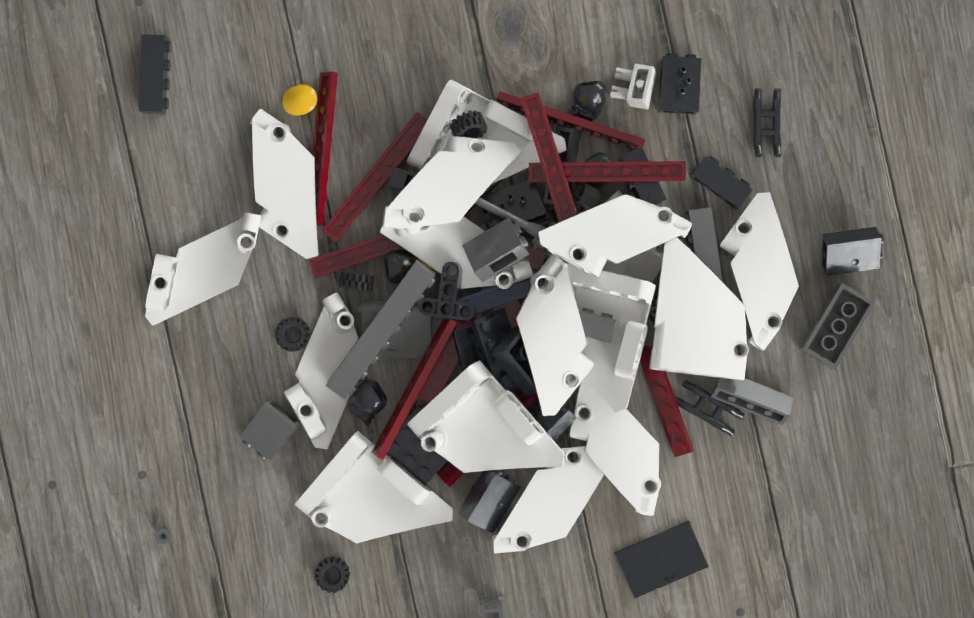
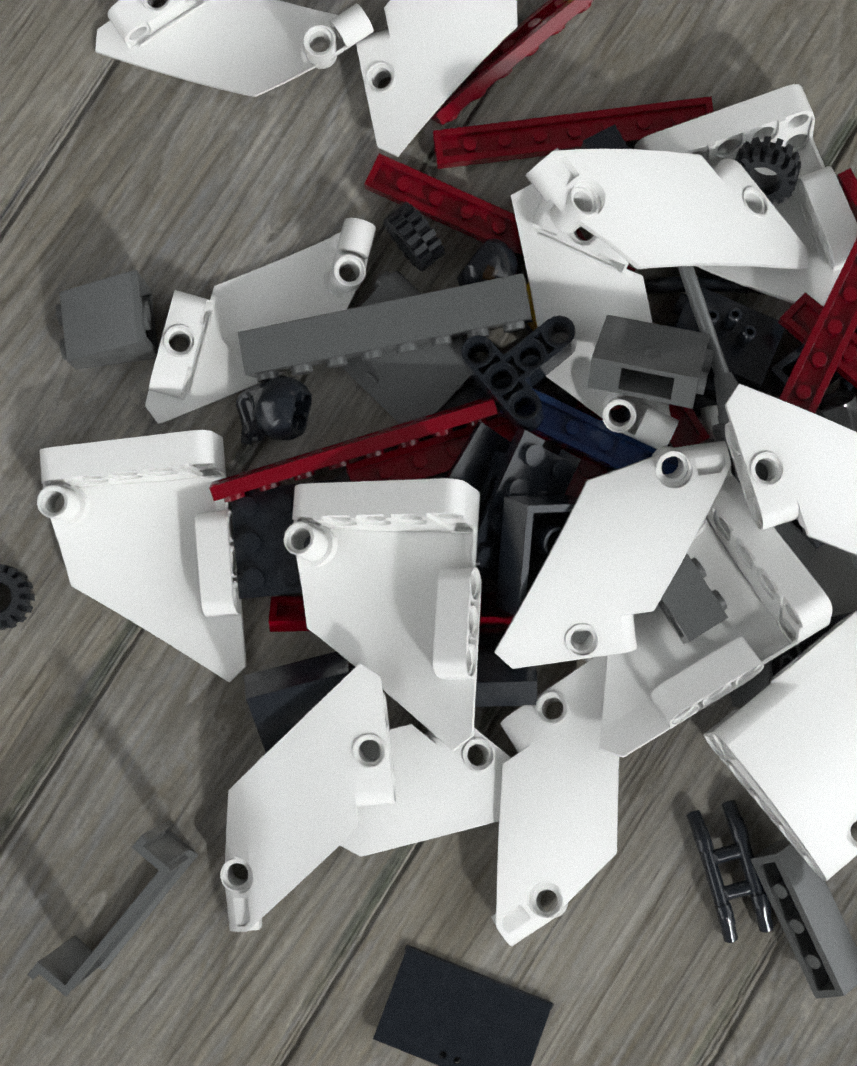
camera: 50 degrees right, 5 degrees down
(281, 330) = (256, 210): black tyre -> none
(524, 535) = (306, 796): none -> white panel
(666, 406) = (675, 811): dark red plate -> none

